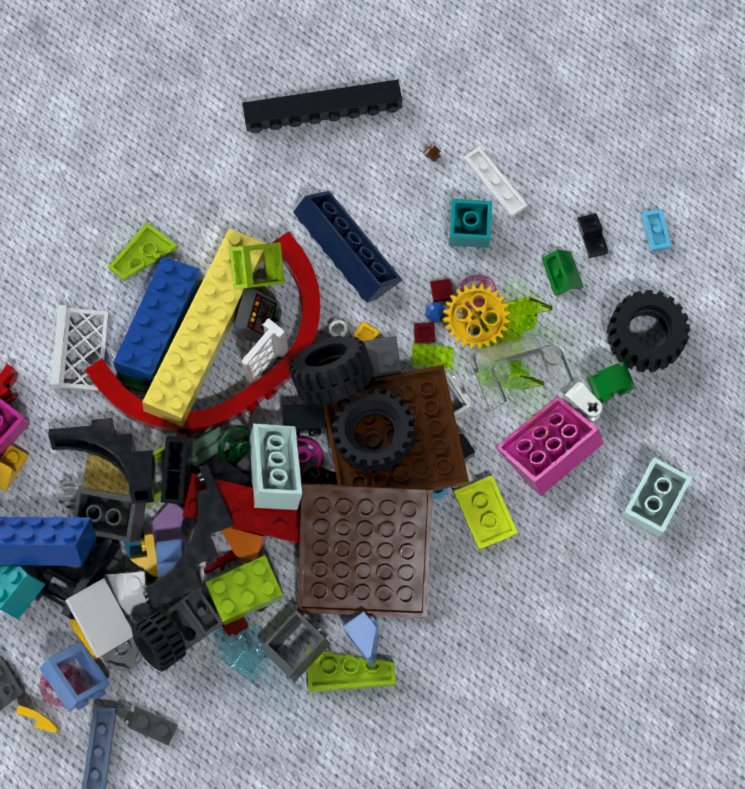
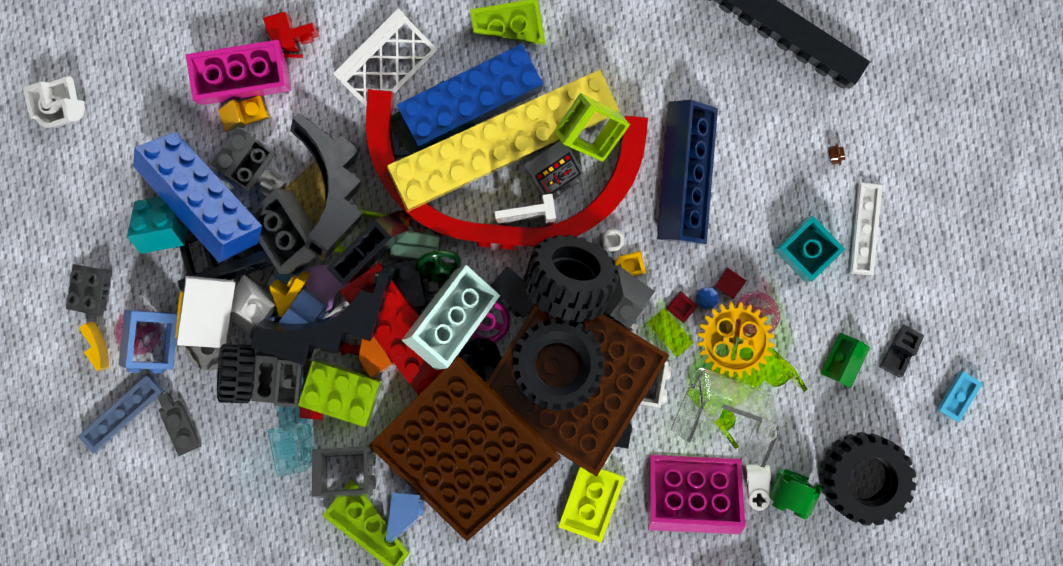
camera: 40 degrees right, 15 degrees up
(36, 493) = (243, 159): none -> dark grey slope

